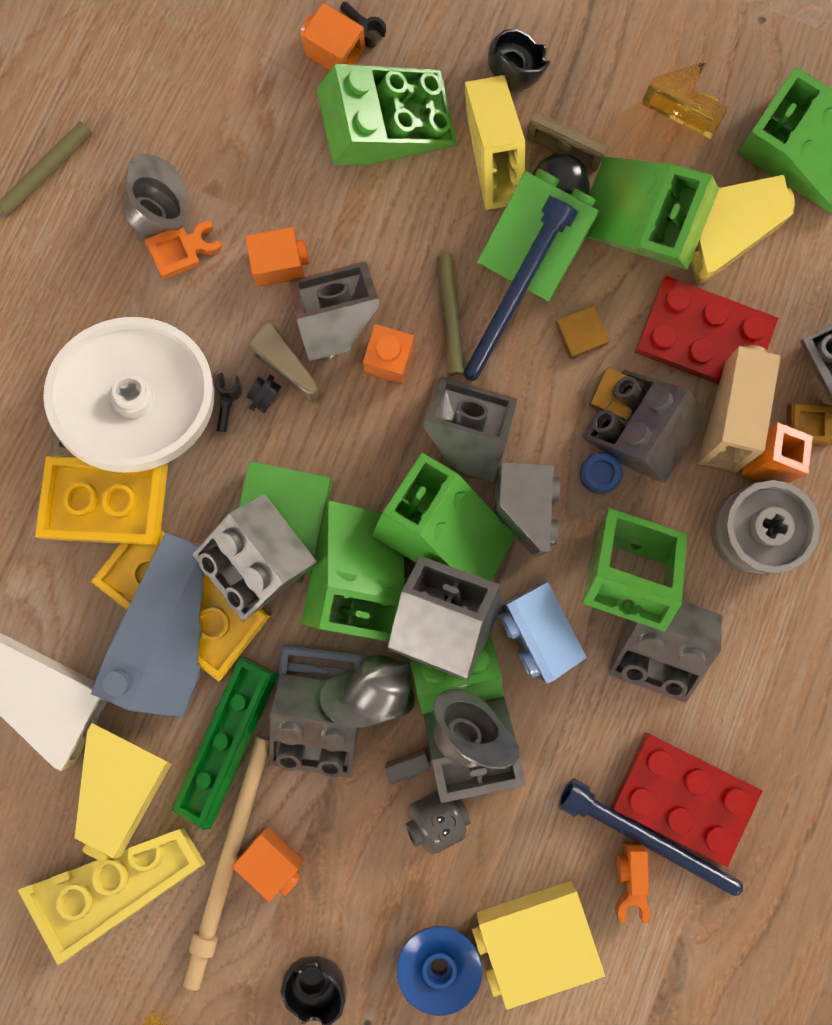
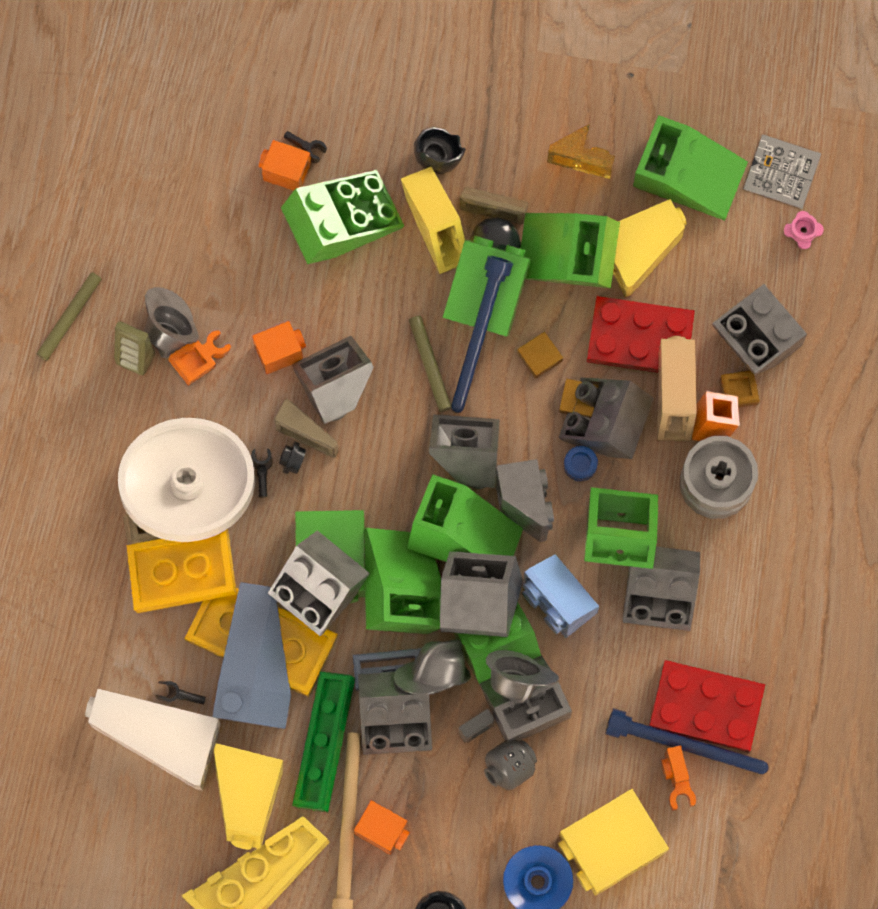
camera: 15 degrees left, 10 degrees down
(68, 646) = (176, 693): none -> black hand
(102, 220) = (132, 348): none -> olive slope
(389, 354) = (388, 405): orange brick -> none

